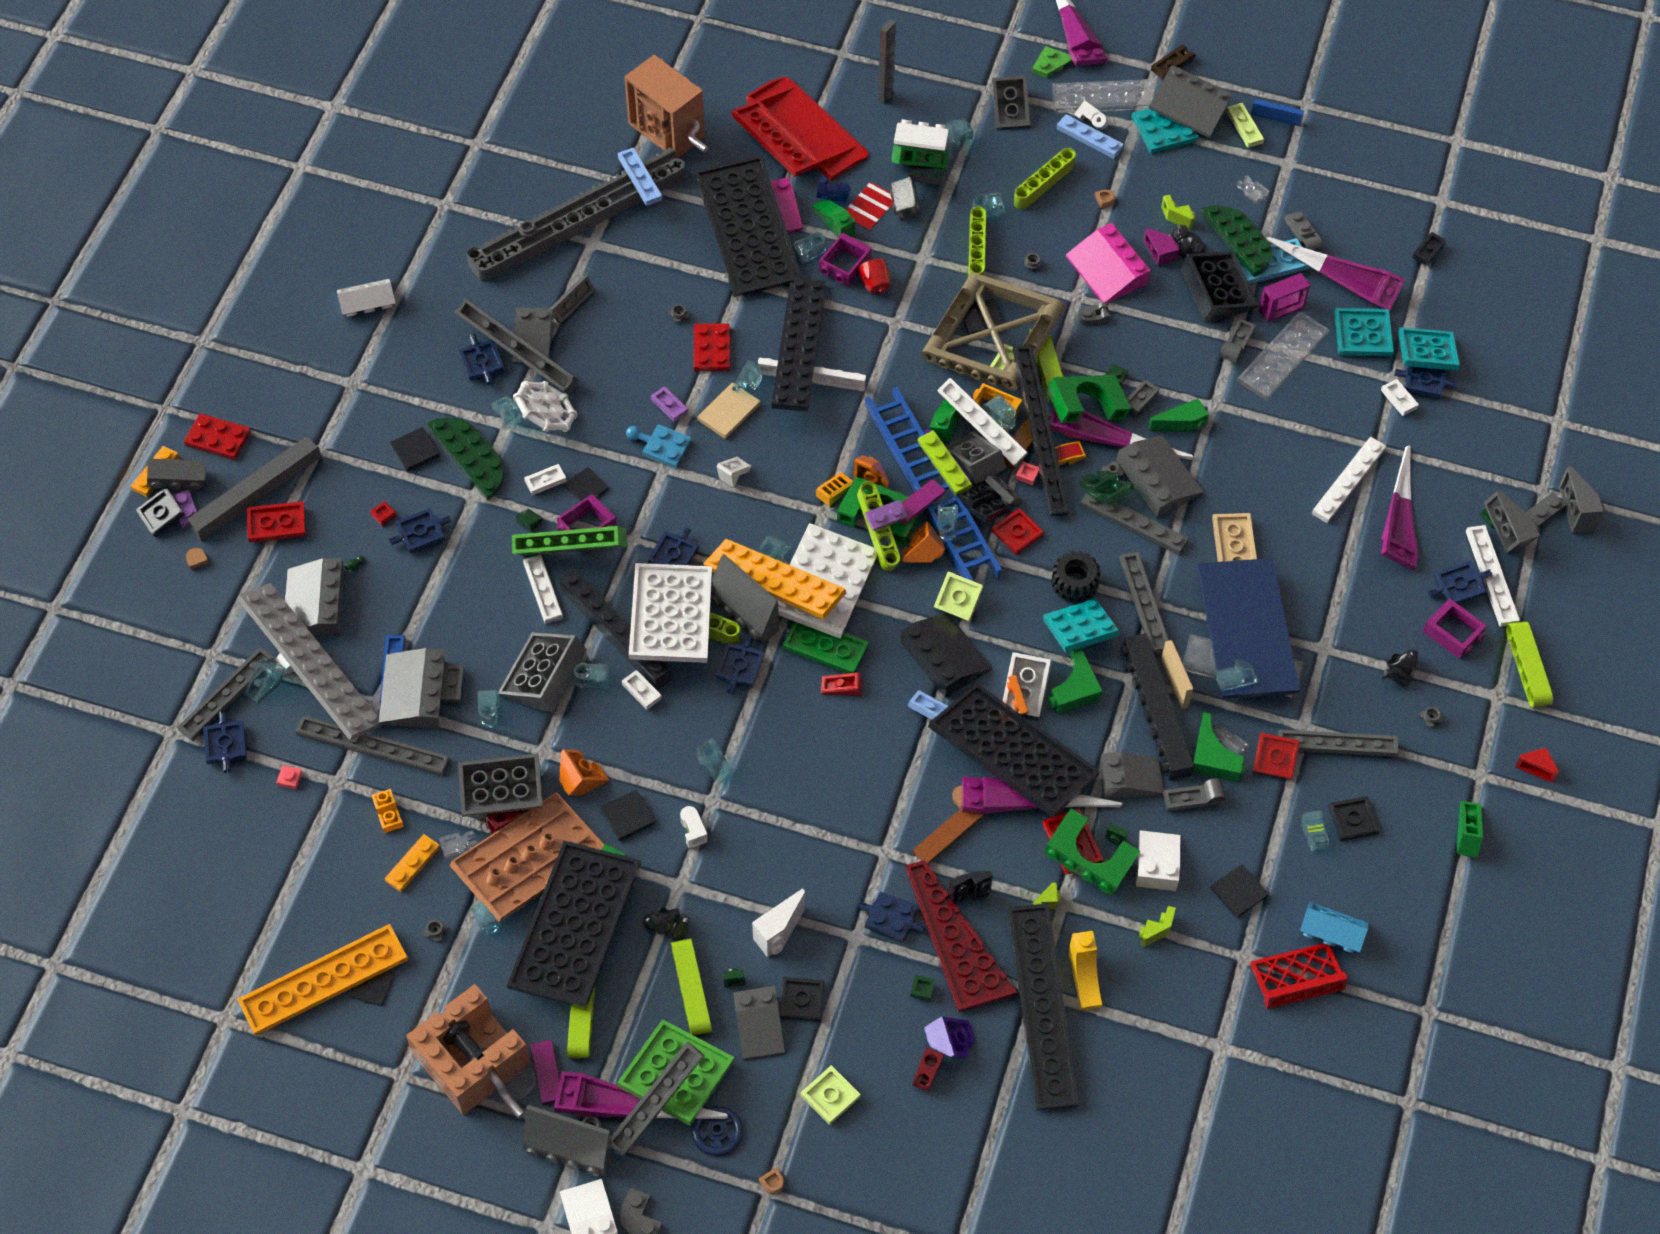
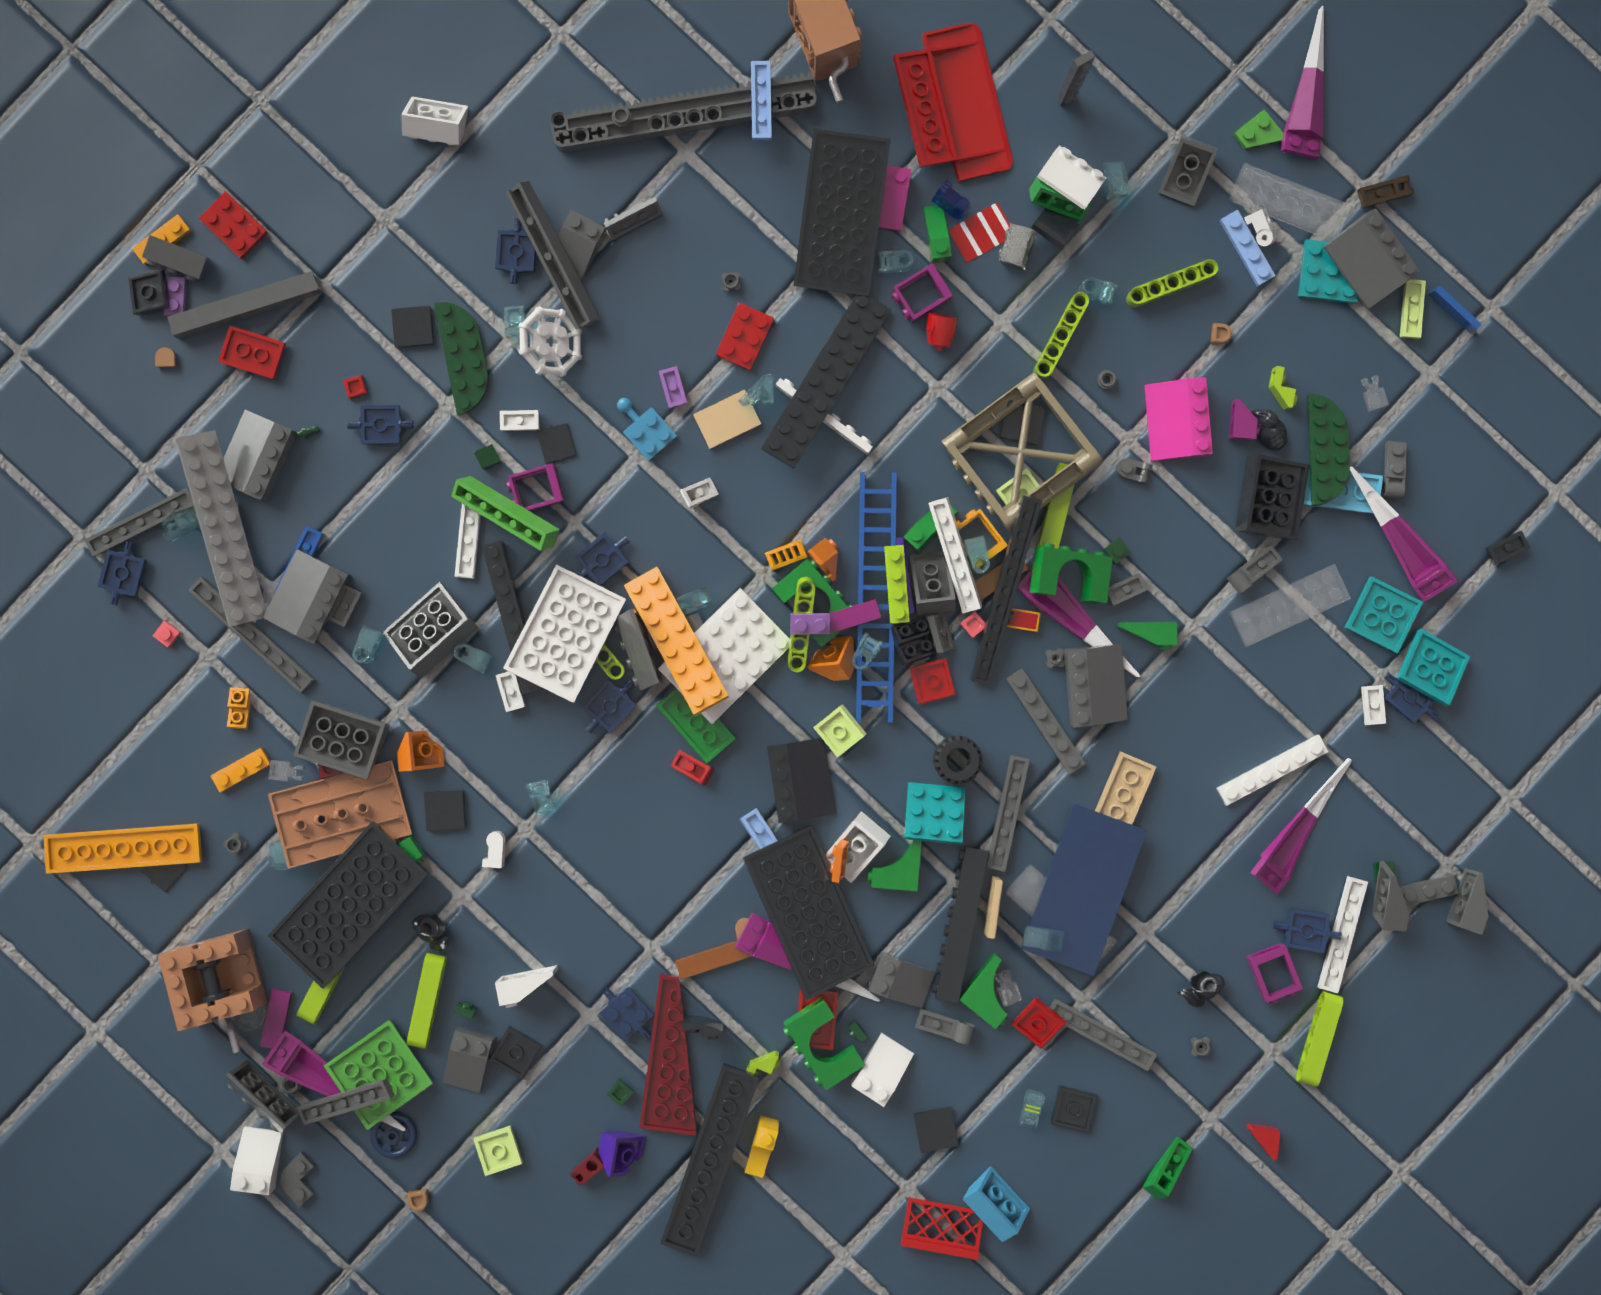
camera: 20 degrees right, 30 degrees up
(1106, 486) = (1036, 678): clear green plate -> none
(1154, 931) = (838, 1134): lime slope -> none
(1284, 297) = (1328, 544): magenta window -> none

